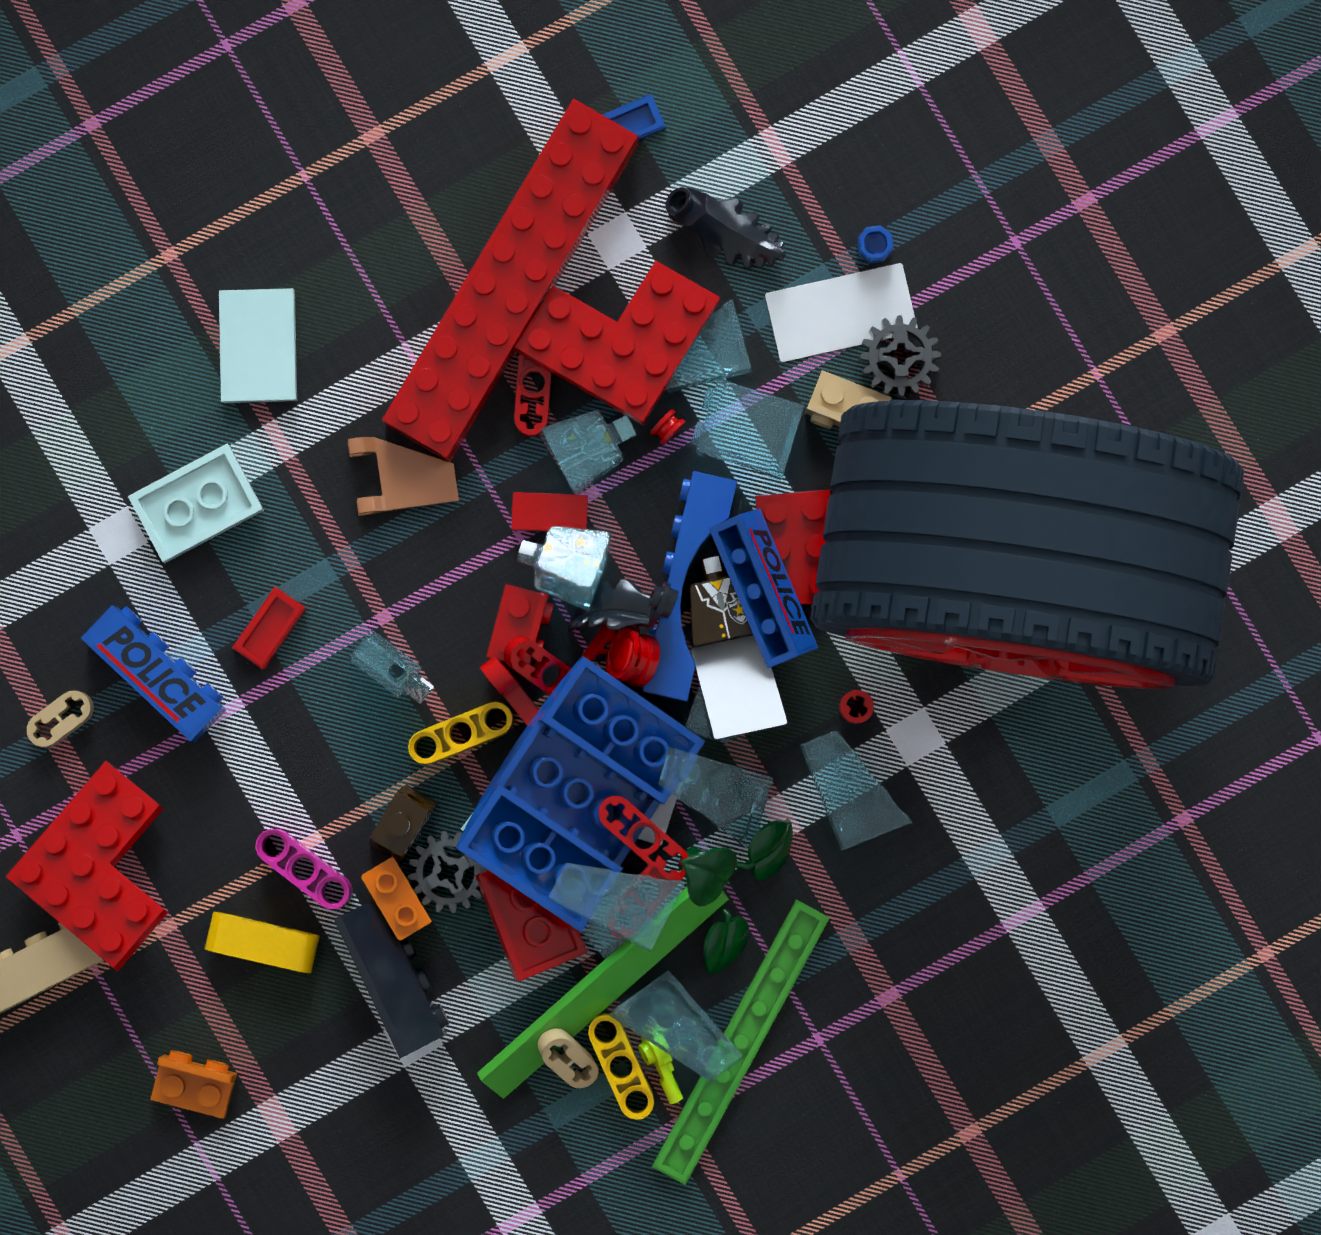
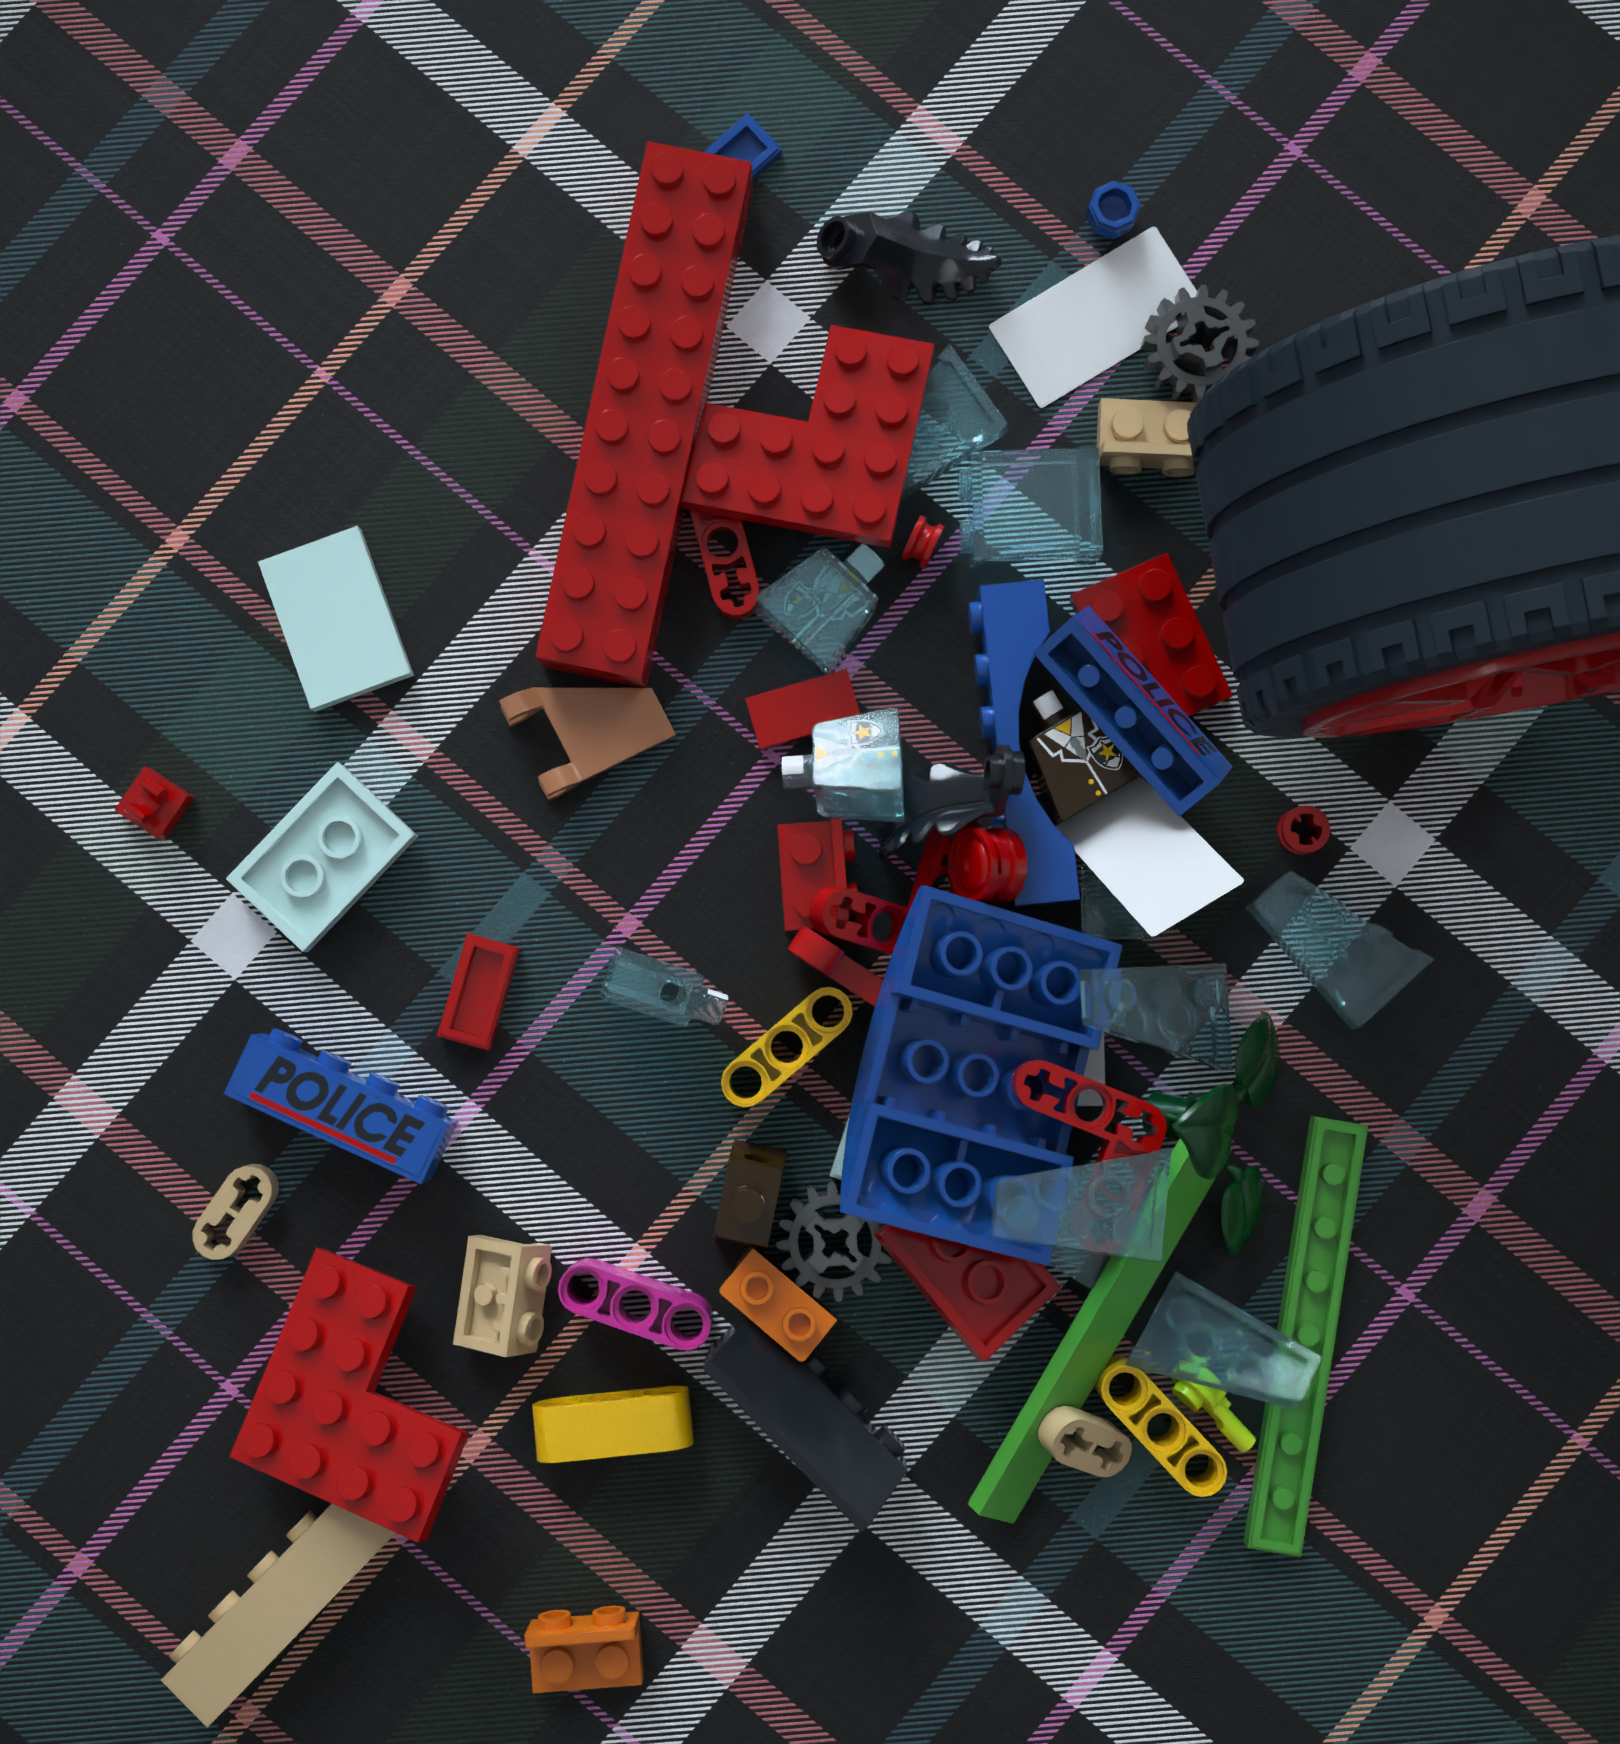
camera: 20 degrees left, 0 degrees up
(95, 429) = (154, 803): none -> red tile
(218, 834) = (502, 1296): none -> tan bracket

